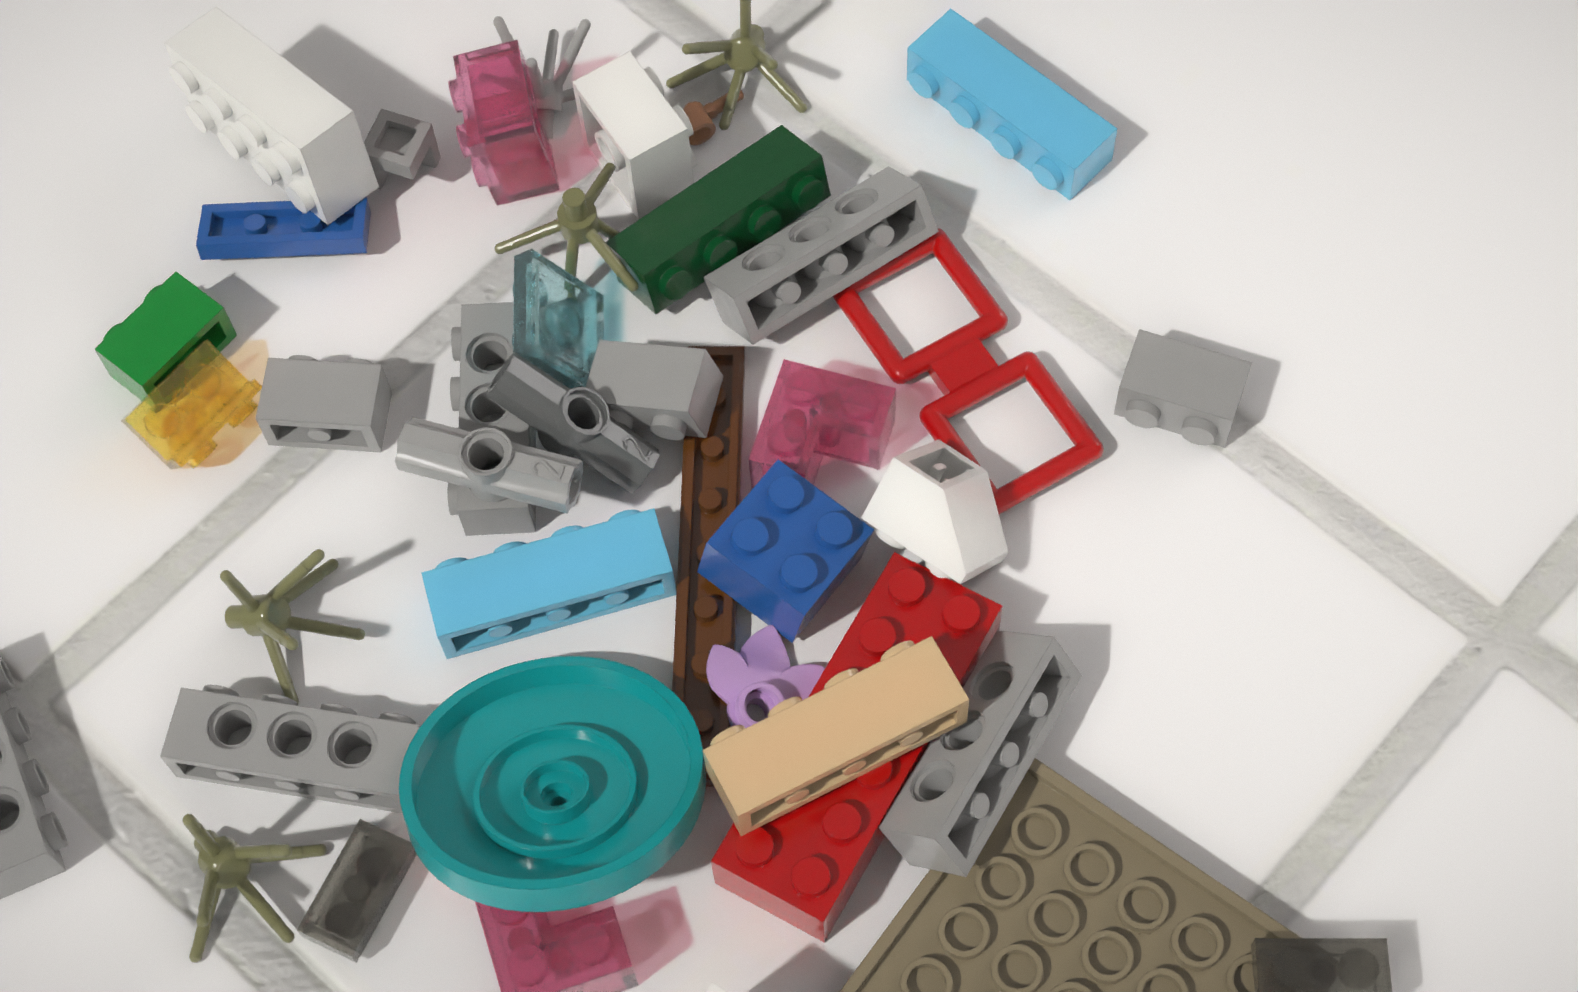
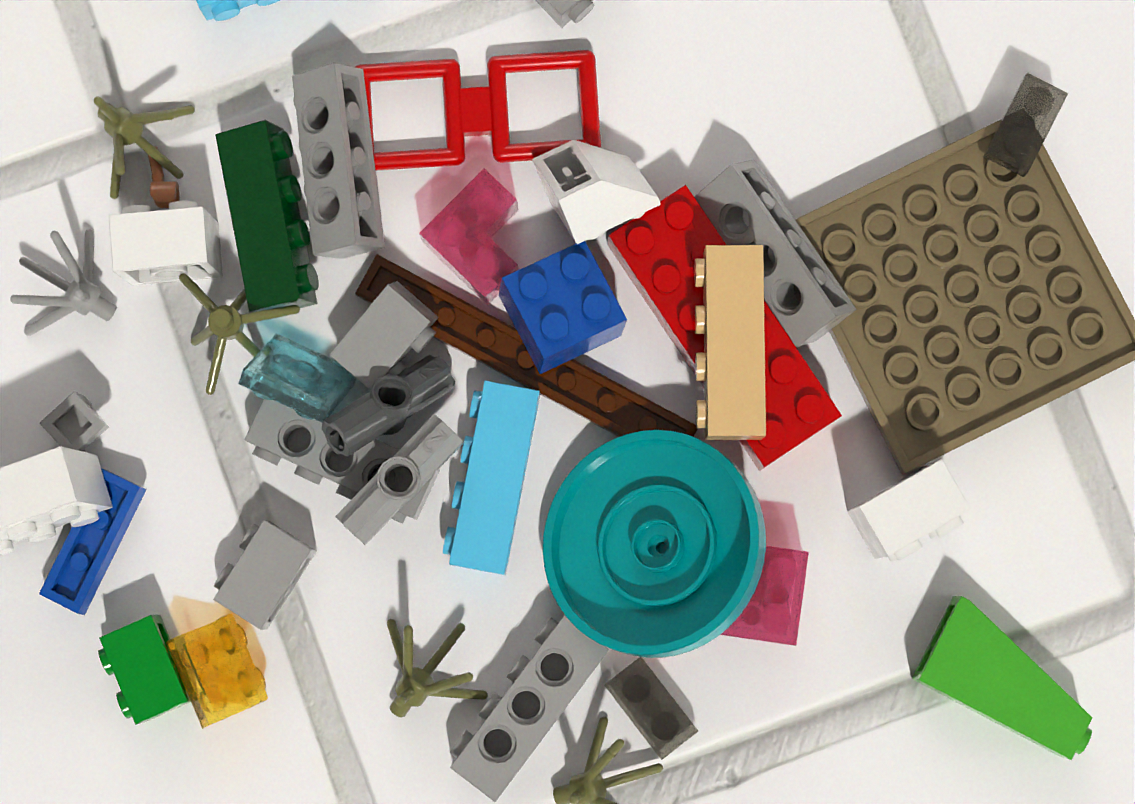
camera: 65 degrees left, 20 degrees up
(502, 124) = (102, 336): clear pink brick -> none
(758, 675) = (638, 366): lavender plate -> none

